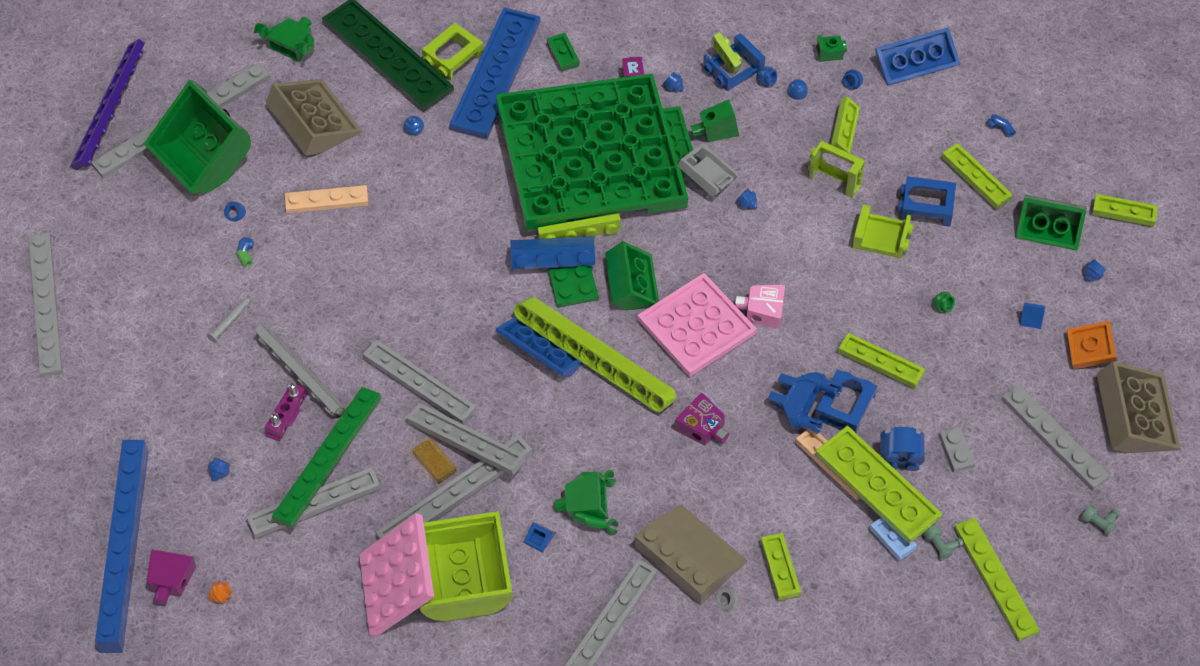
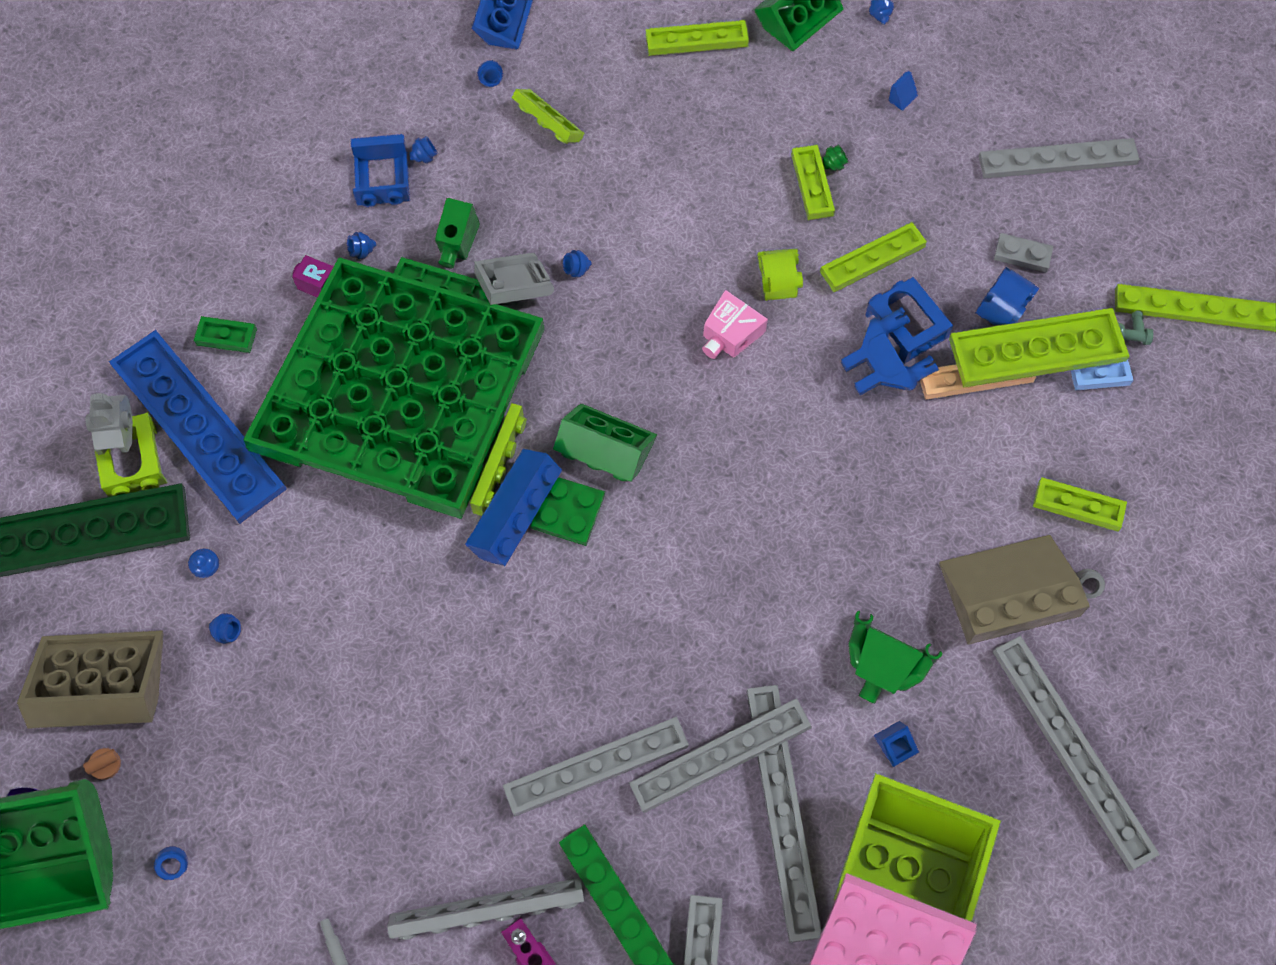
camera: 60 degrees left, 10 degrees up
(242, 251) = (242, 886): arm -> none
(268, 149) = (103, 764): none -> nougat plate
(326, 199) = (237, 732): light nougat plate -> none
(381, 157) = (225, 628): none -> blue plate
(434, 460) = (722, 810): clear yellow plate -> none
(460, 24) = (110, 422): none -> light grey hinge
(539, 347) = (633, 592): blue slope -> none
(595, 354) = (683, 541): lime beam -> none
(697, 324) = (711, 410): bright pink plate -> none
(702, 421) = (847, 476): magenta torso -> none
(723, 48) = (366, 169): lime plate -> none
(797, 89) = (462, 132): blue piece -> none
(825, 312) = (780, 274): none -> lime cylinder
(830, 48) = (433, 70): green brick -> none
(852, 178) = (629, 147): lime panel -> none
(882, 234) = (711, 162): lime panel -> none
(913, 298) = (813, 182): none -> lime plate
(944, 212) = (694, 120): blue panel -> none
(1091, 344) = (973, 61): orange hinge -> none
(1105, 524) = (1170, 181): sand green piece -> none
(1137, 409) = (1070, 71): dark tan slope -> none

